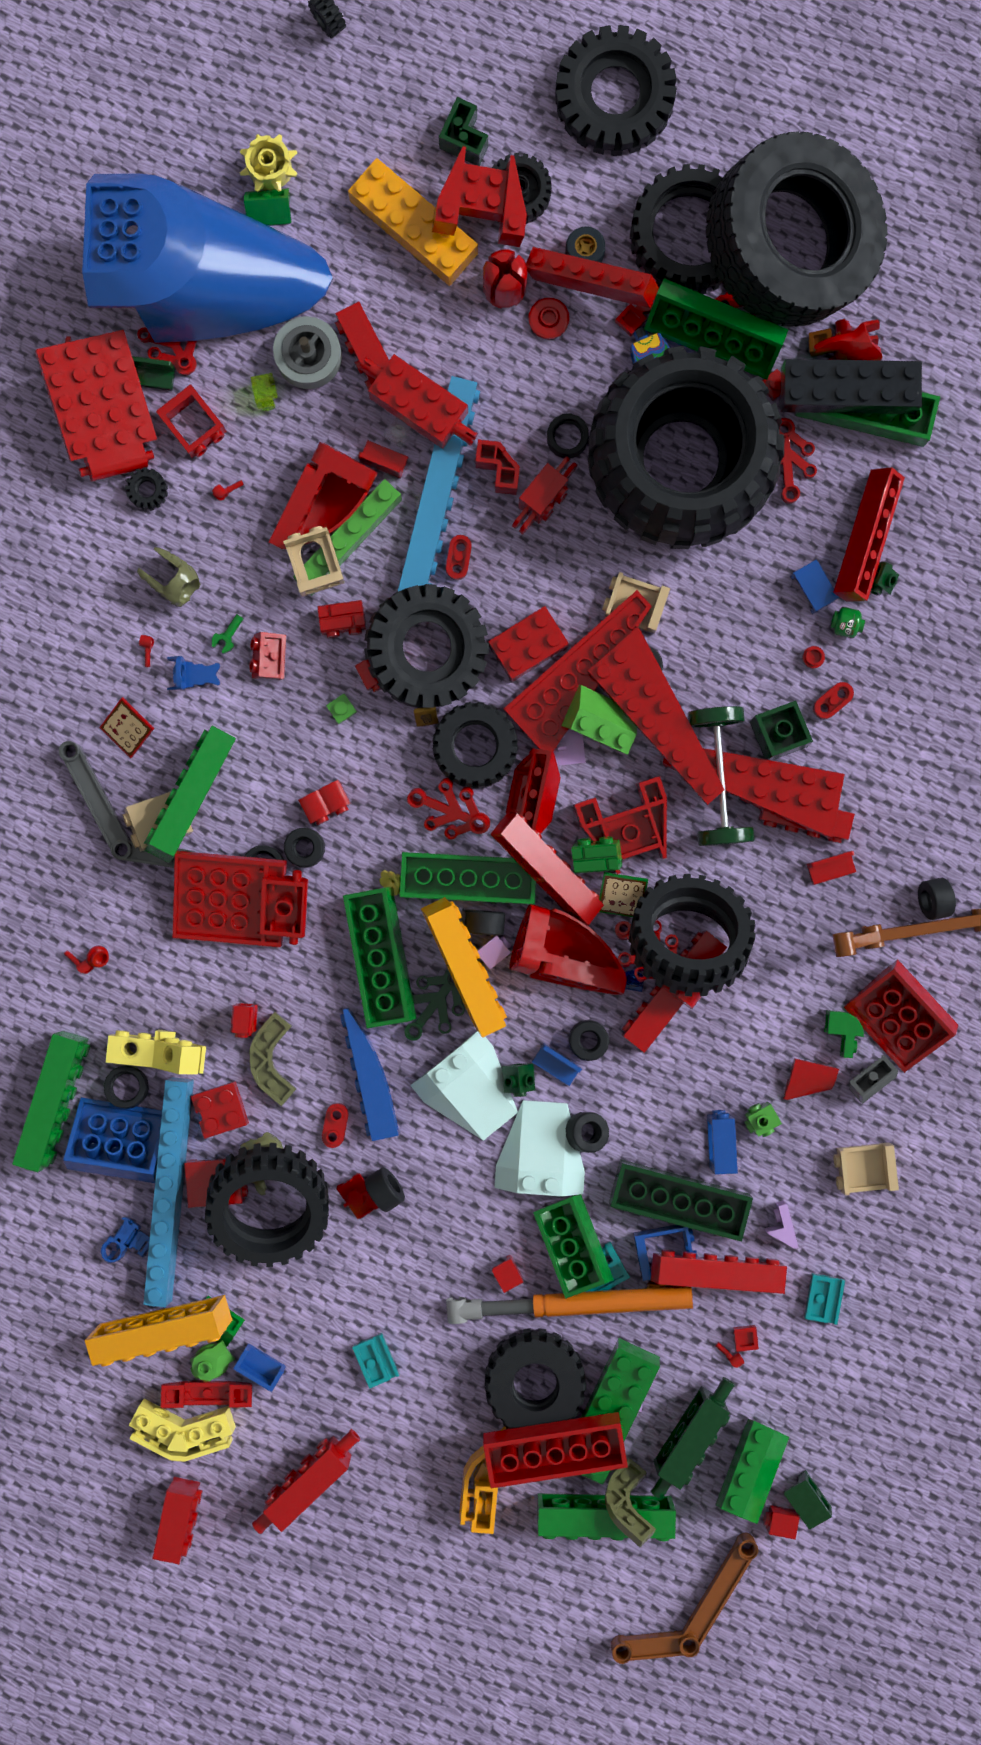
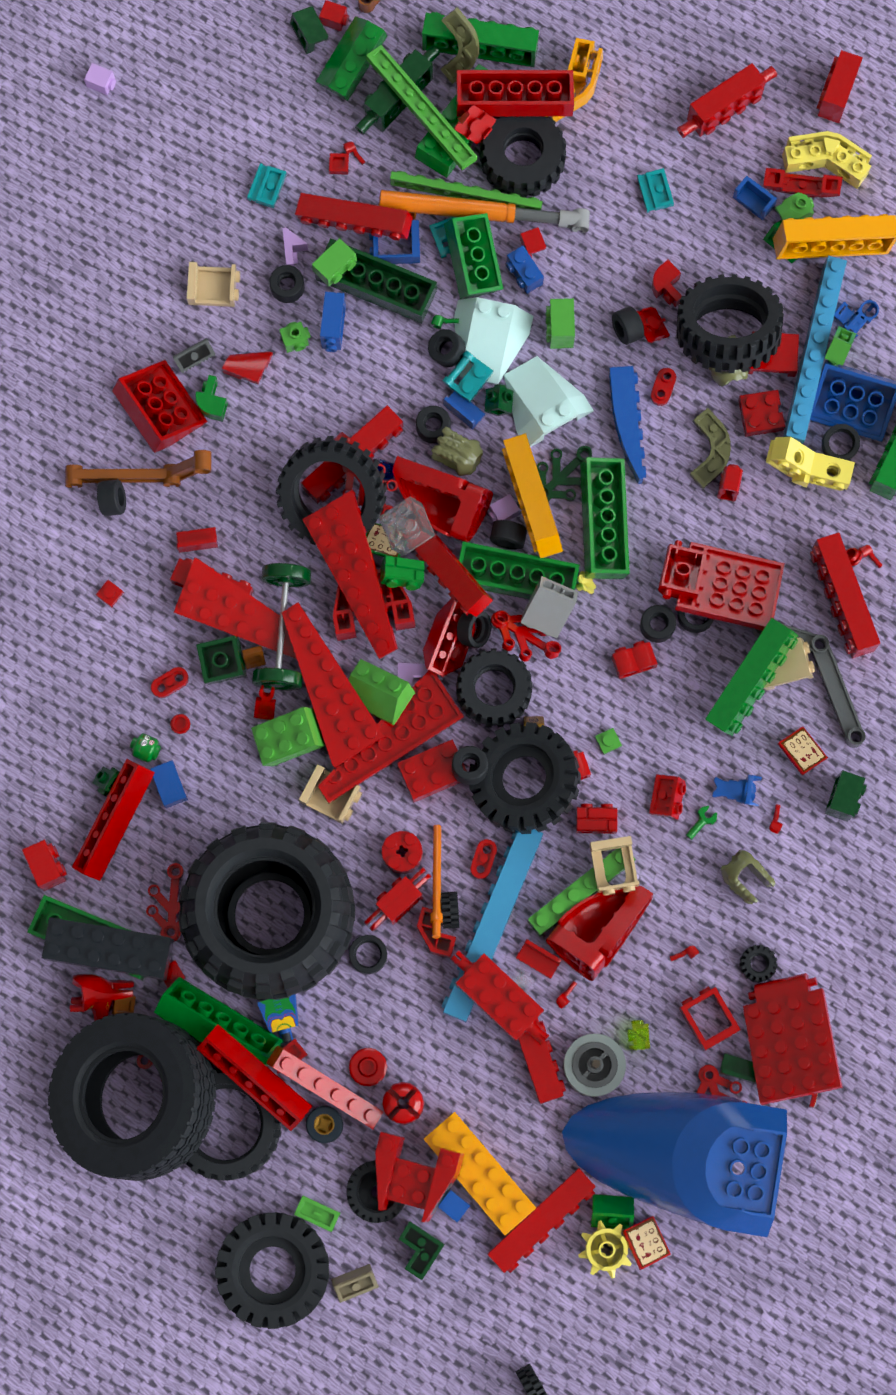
camera: 170 degrees left, 10 degrees down
(72, 681) = (845, 796): none -> dark green brick
(99, 907) = (844, 595): none -> red brick
(138, 1199) = (840, 346): none -> bright green brick
(227, 177) = (646, 1242): none -> piece
(332, 192) = (541, 1221): none -> red brick
(352, 420) = (562, 1000): none -> red hand
(353, 1248) = (662, 283): none -> red brick
(426, 841) = (549, 607): none -> light grey brick
(432, 178) = (454, 1206): none -> blue panel
(460, 1179) = (560, 323): none -> bright green brick
(486, 493) = (450, 910): none -> black tyre
(498, 637) = (473, 753): none -> black tyre
(499, 476) = (436, 916): none -> orange bar
(499, 802) = (482, 633): none -> black tyre
(512, 1240) = (525, 270): none -> blue brick
(527, 95) = (354, 1283): none -> dark tan slope
(551, 1098) = (472, 381): none -> teal plate
(554, 538) = (392, 846): none -> red brick
(555, 1009) = (457, 452): none -> olive piece
(578, 157) = (317, 1213): none -> bright green plate
(596, 1404) = (475, 124): none -> red piece
(600, 910) = (406, 526): none -> clear brick
(601, 1164) = (438, 321): none -> green hand
(602, 1325) = (458, 190): none -> bright green plate
(662, 1415) = (421, 107): none -> bright green plate
(666, 871) = (345, 548): none -> red wing
(669, 268) = (254, 1077): none -> red brick
(693, 654) = (288, 736): none -> bright green brick
(724, 689) = (265, 704): none -> red plate
(732, 1210) = (334, 262): none -> bright green brick
(745, 742) = (254, 657): none -> dark orange plate
(794, 1189) = (292, 294): none -> black tyre
(917, 792) = (109, 593): none -> red plate
(934, 474) = (44, 864): none -> red brick

